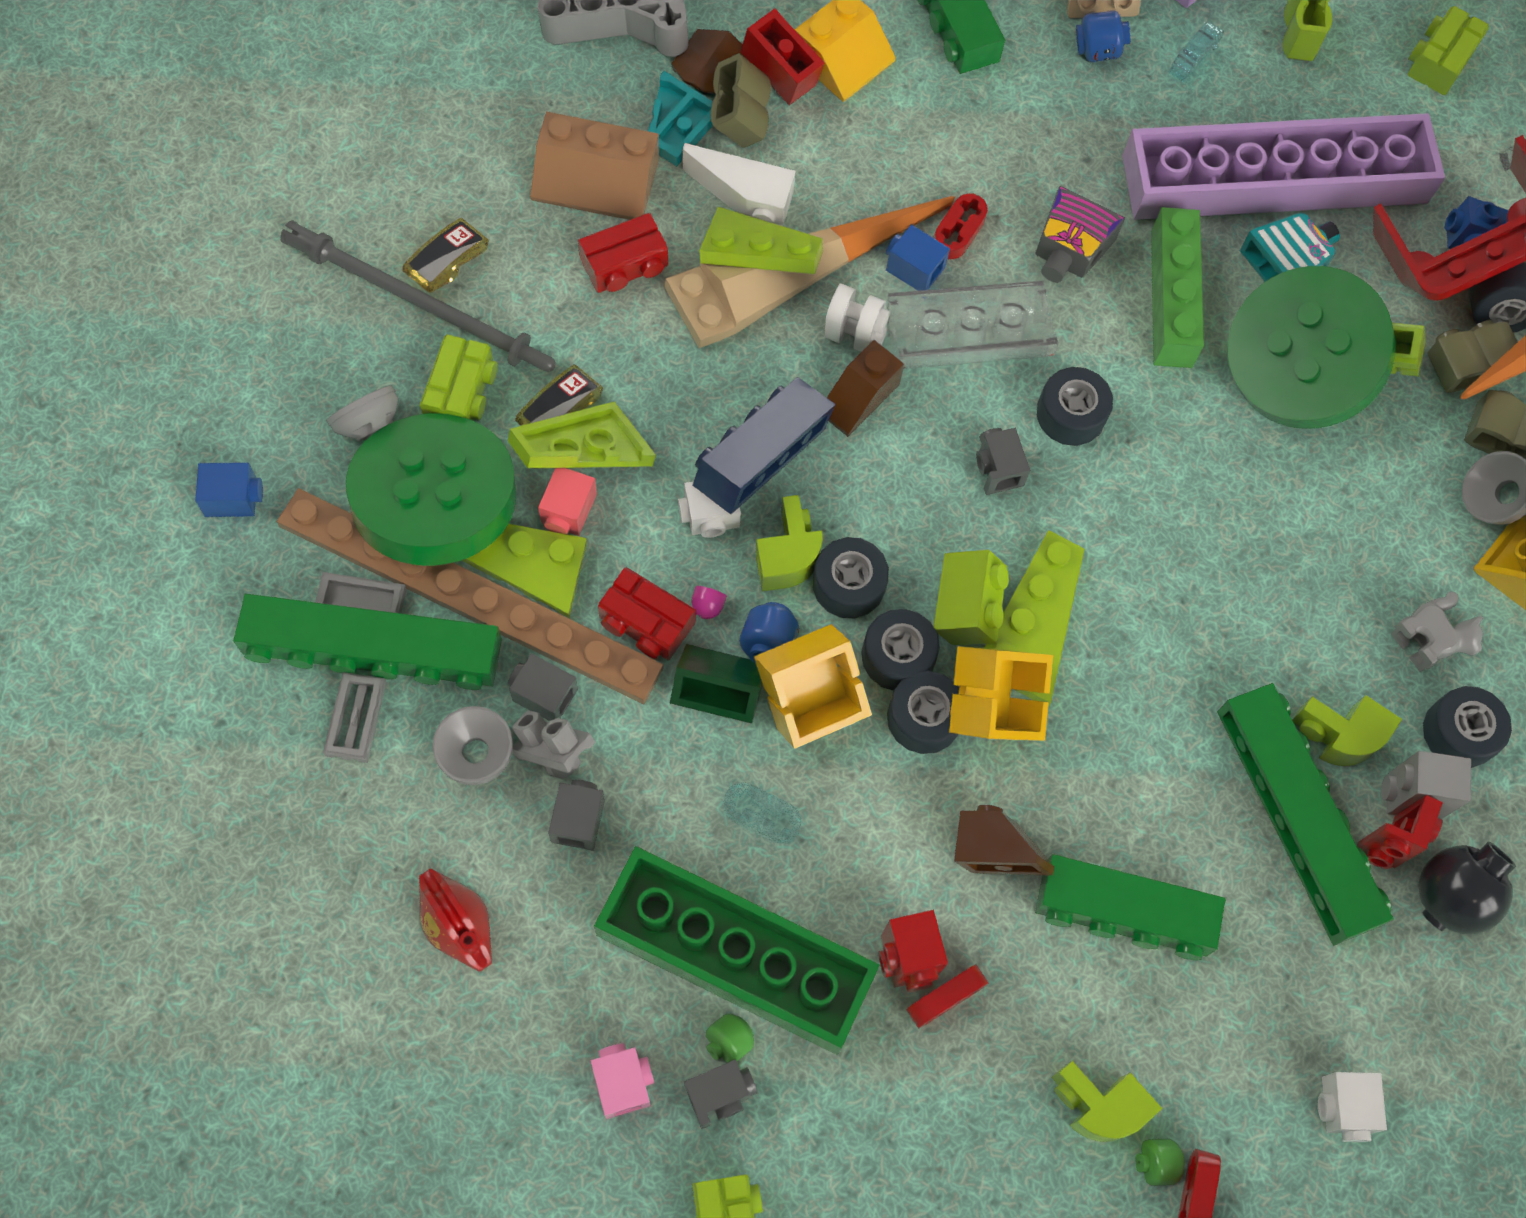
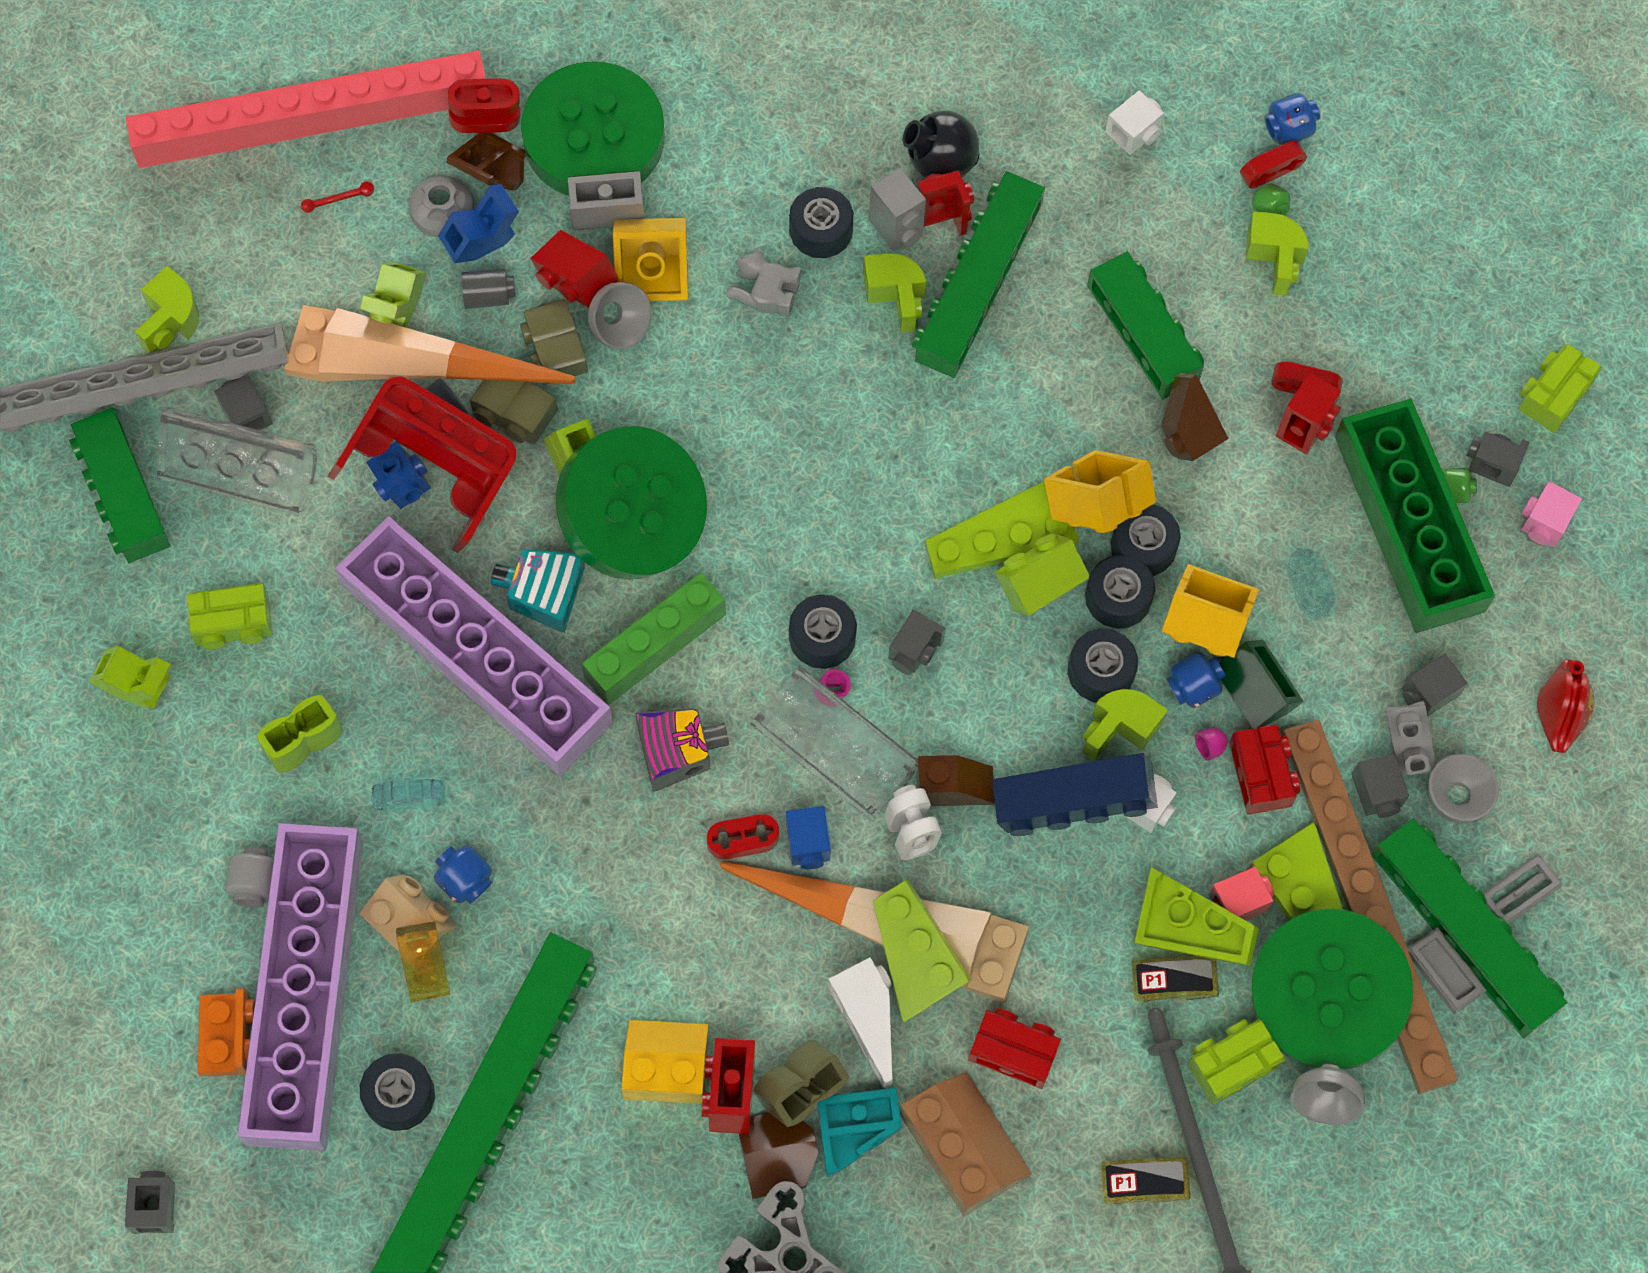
camera: 130 degrees left, 0 degrees up
(227, 489) = (1474, 1134): blue brick -> none
(1014, 373) = (836, 678): none -> dark pink hinge

